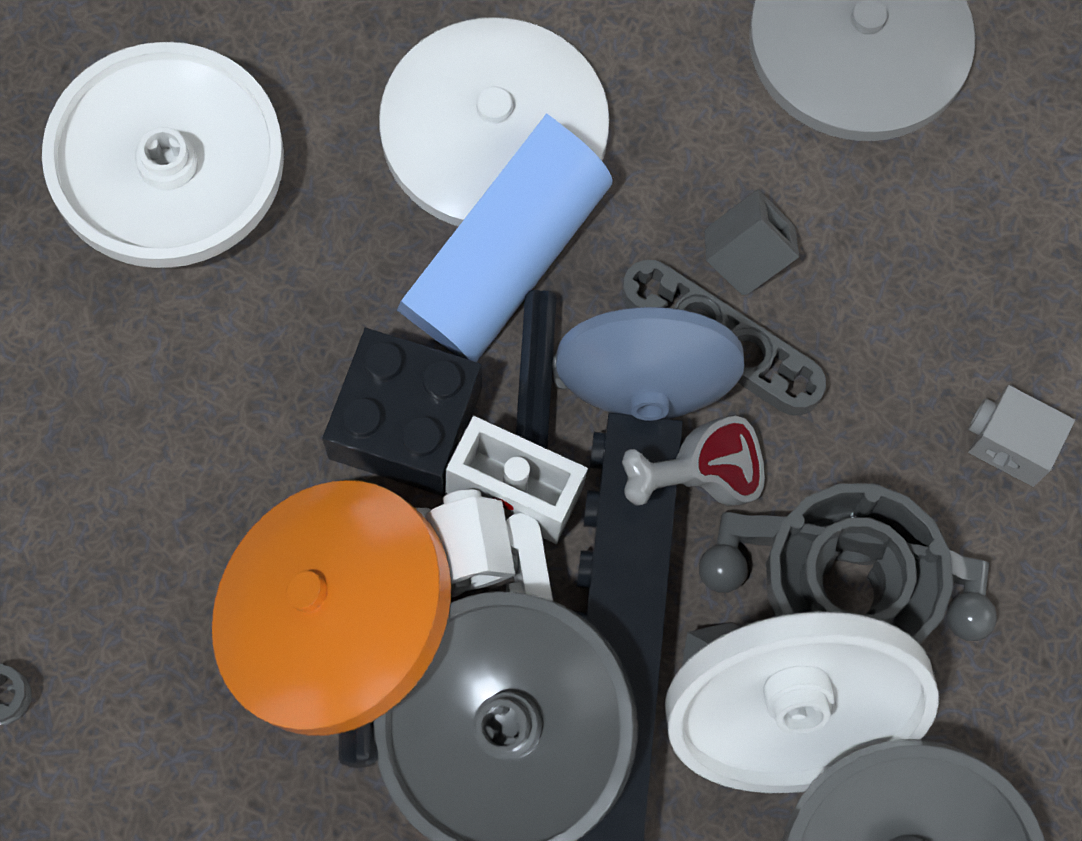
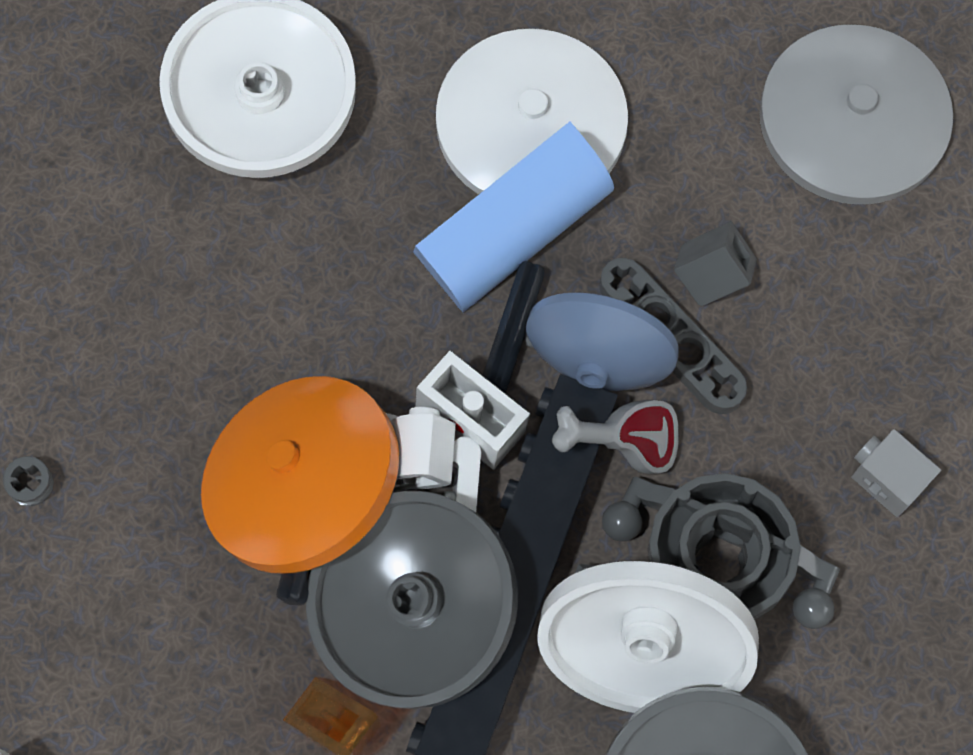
camera: 15 degrees right, 0 degrees up
(402, 410) = (396, 333): black brick -> none

